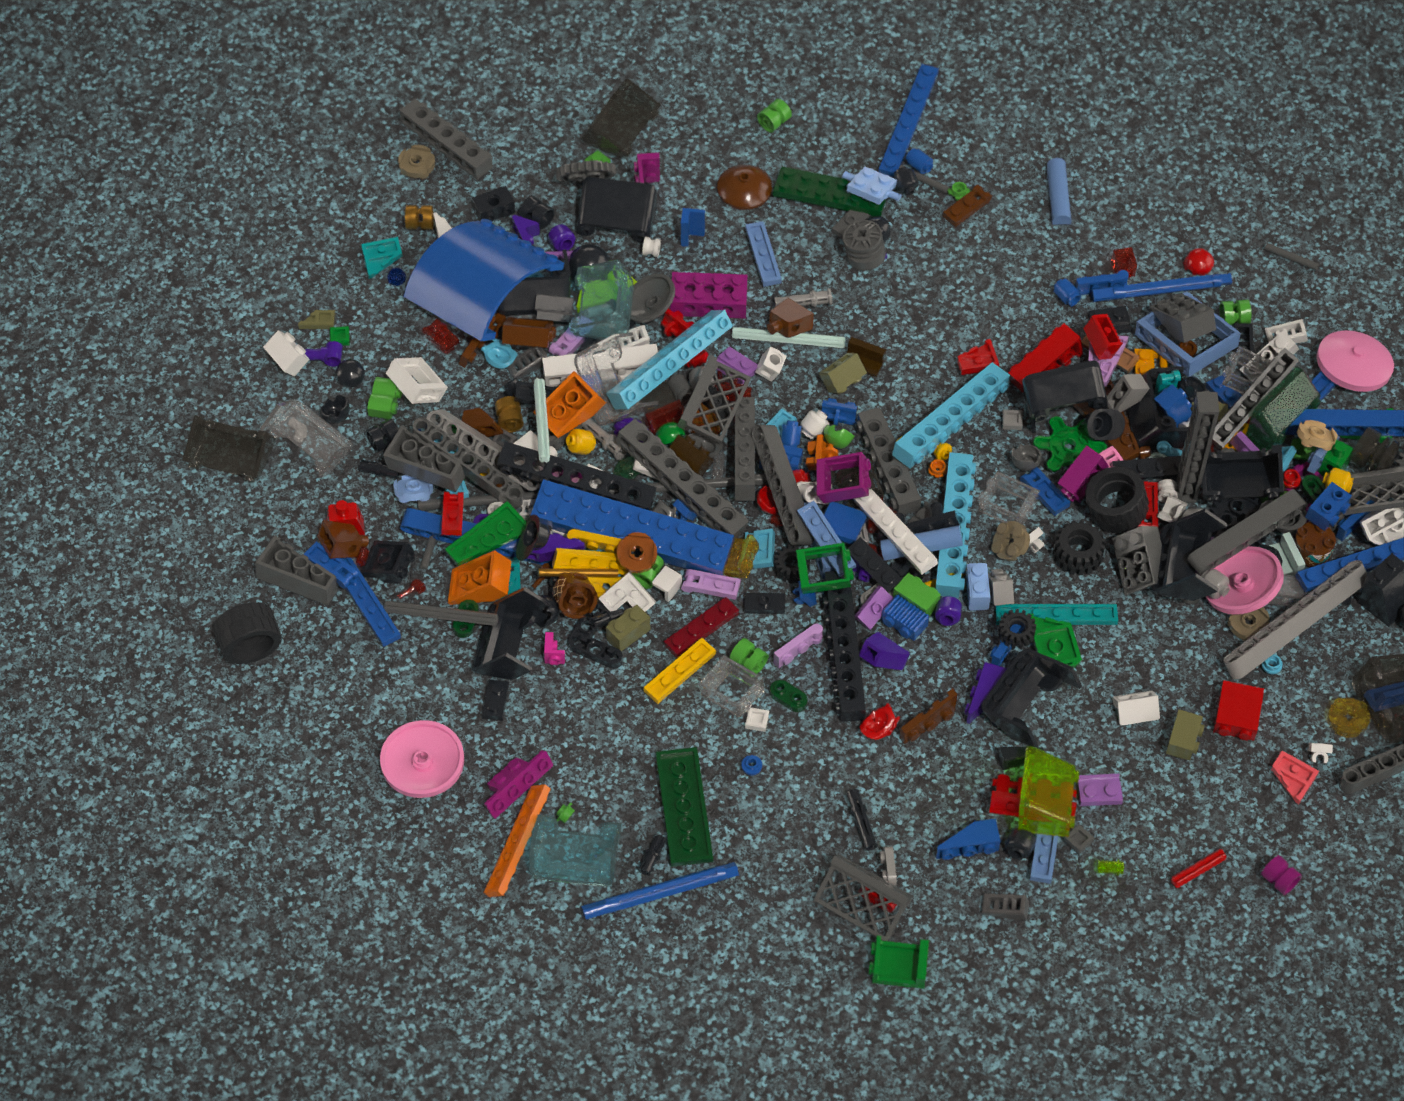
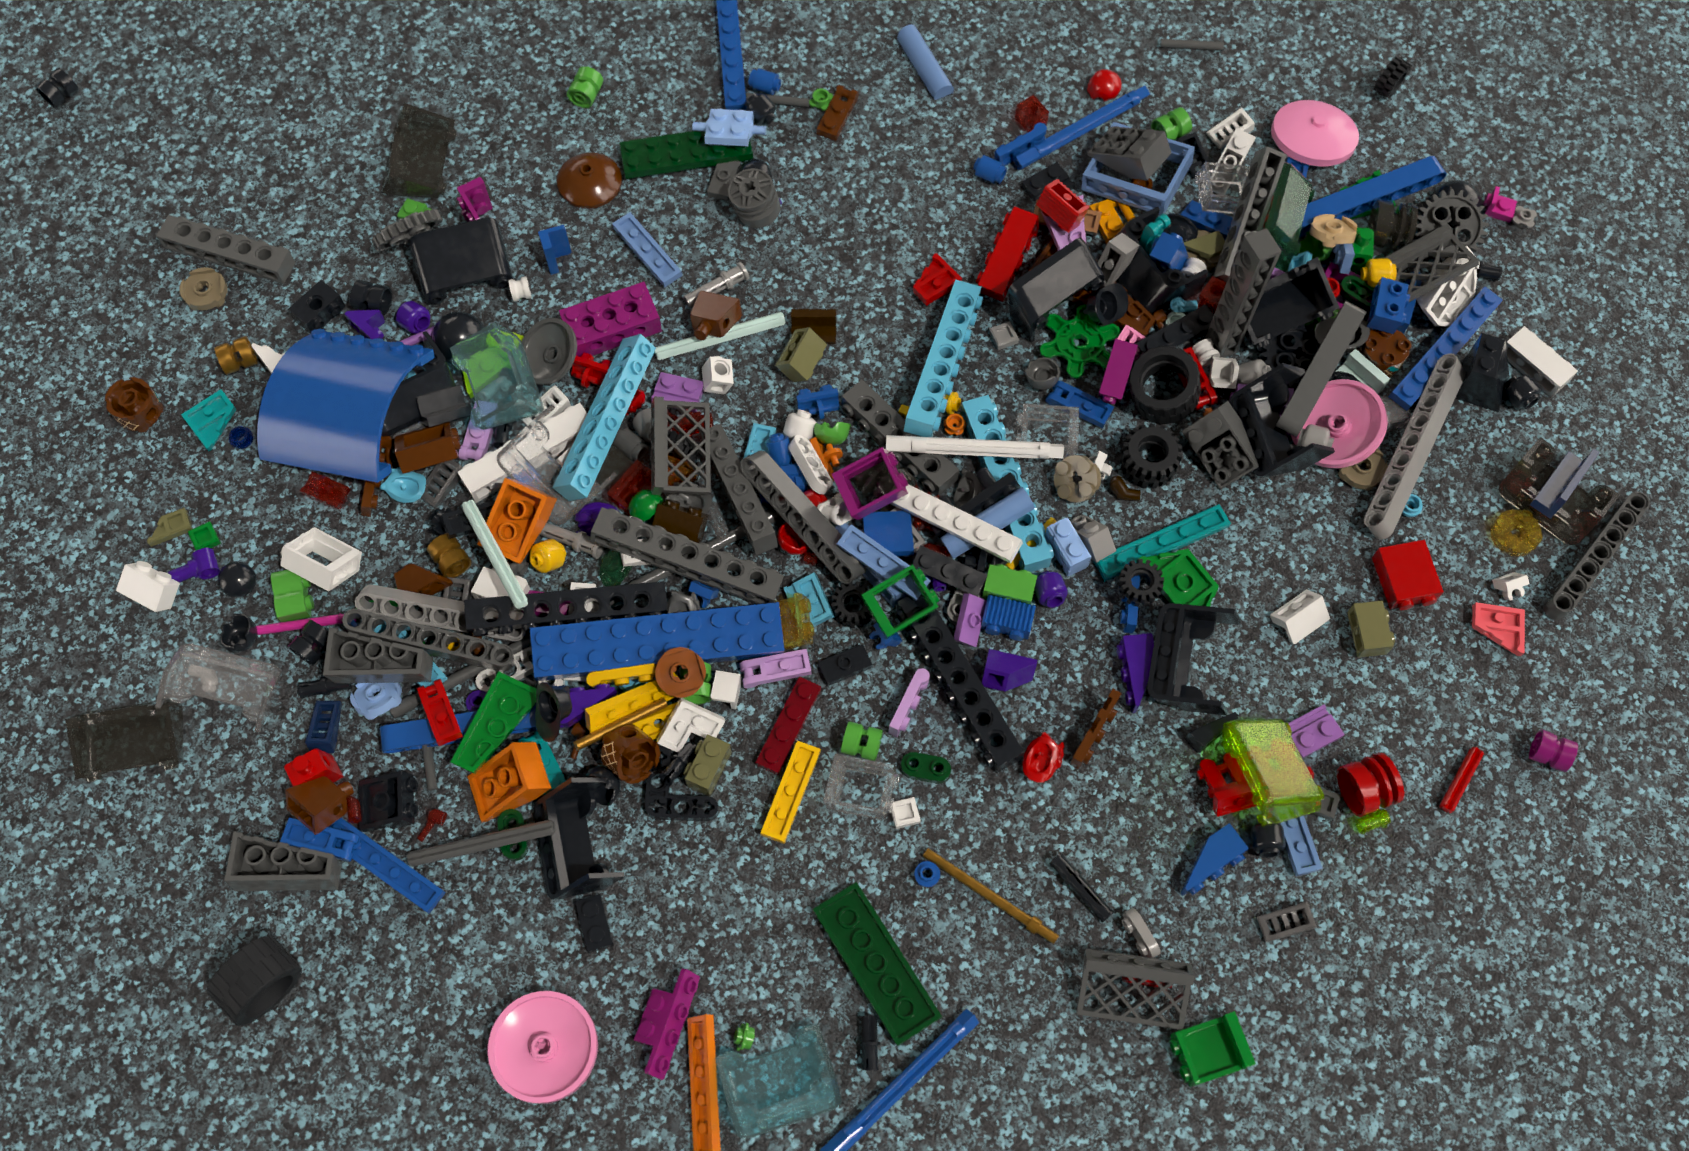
camera: 25 degrees left, 10 degrees up
(330, 224) = (133, 404): none -> reddish brown brick
(369, 500) = (324, 741): none -> dark blue slope
(377, 420) = (299, 624): none -> dark pink bar
(551, 654) = (629, 829): dark pink bracket -> none
(807, 451) = (810, 464): none -> white beam
(811, 828) = (1033, 924): none -> pearl gold bar
(939, 486) = (974, 447): none -> white piece
(1044, 566) = (1121, 490): none -> dark brown arm
(1119, 836) = (1370, 784): none -> red wheel

